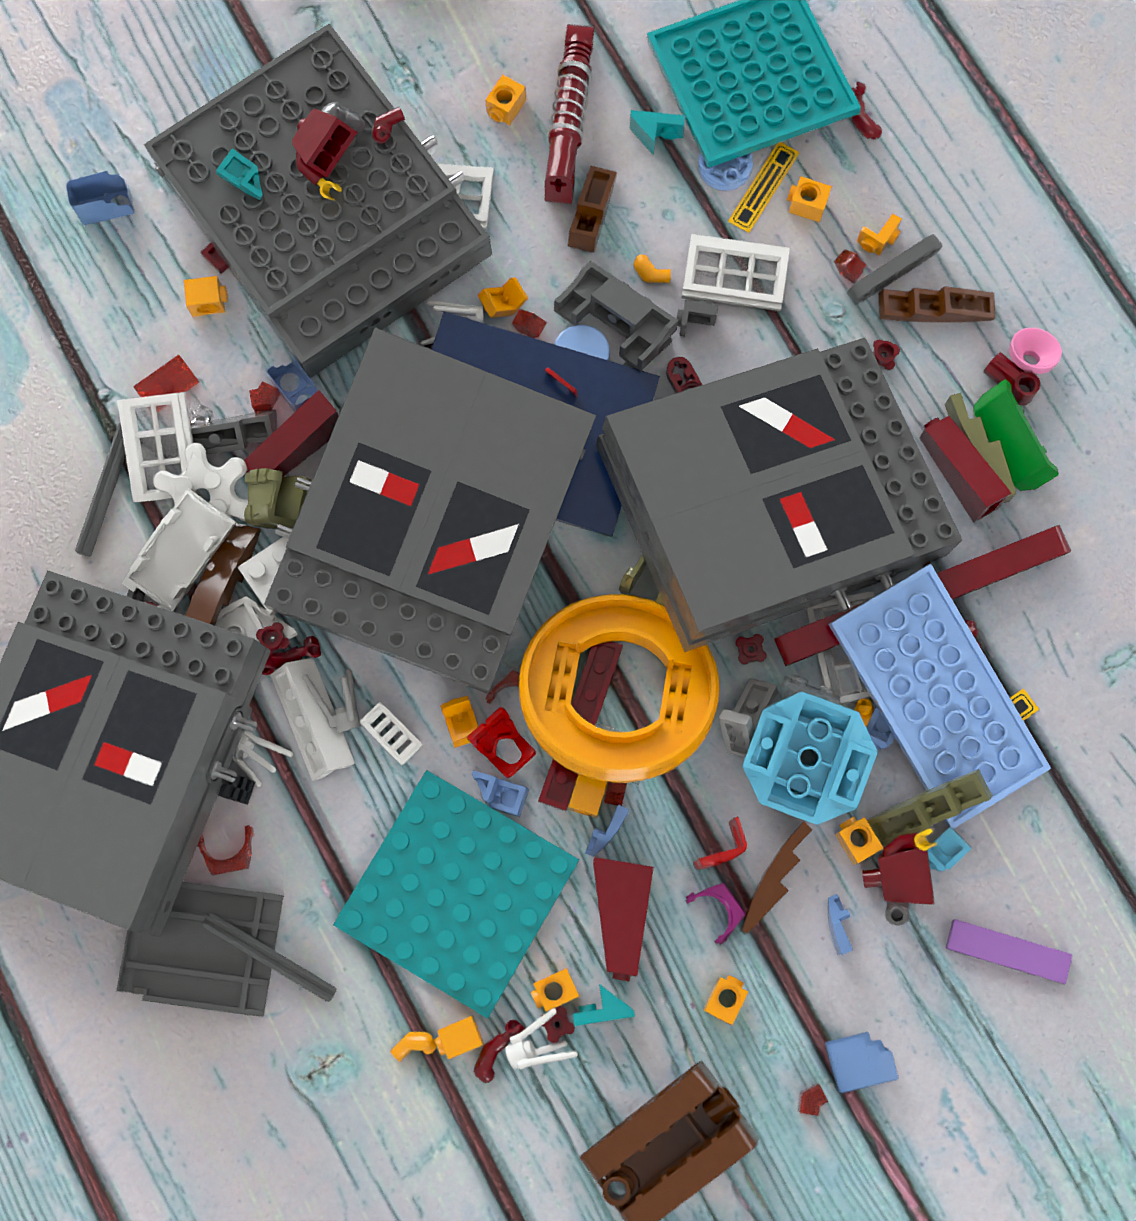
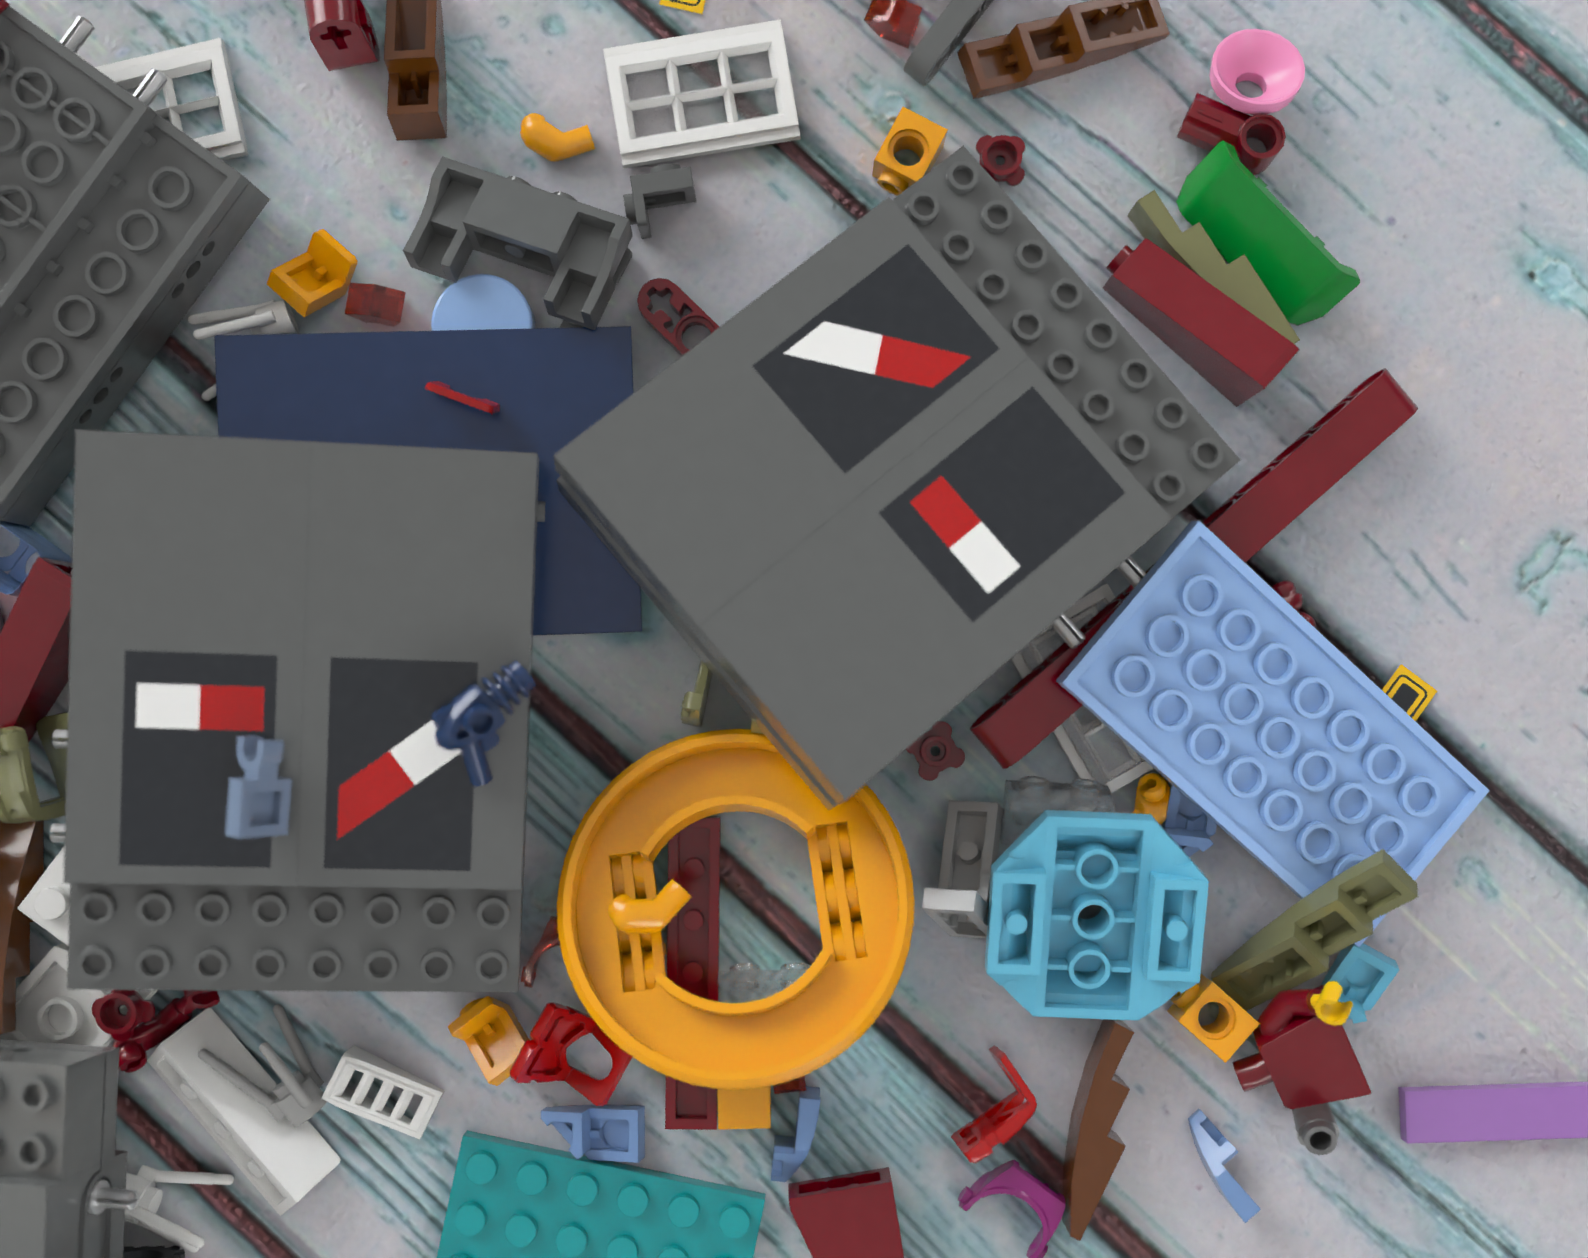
camera: 20 degrees left, 10 degrees up
(399, 534) = (261, 799): none -> sand blue plate
(523, 532) = (476, 715): none -> dark blue piece
(571, 670) = (648, 915): none -> light orange arm
(840, 325) = (911, 133): none -> light orange brick

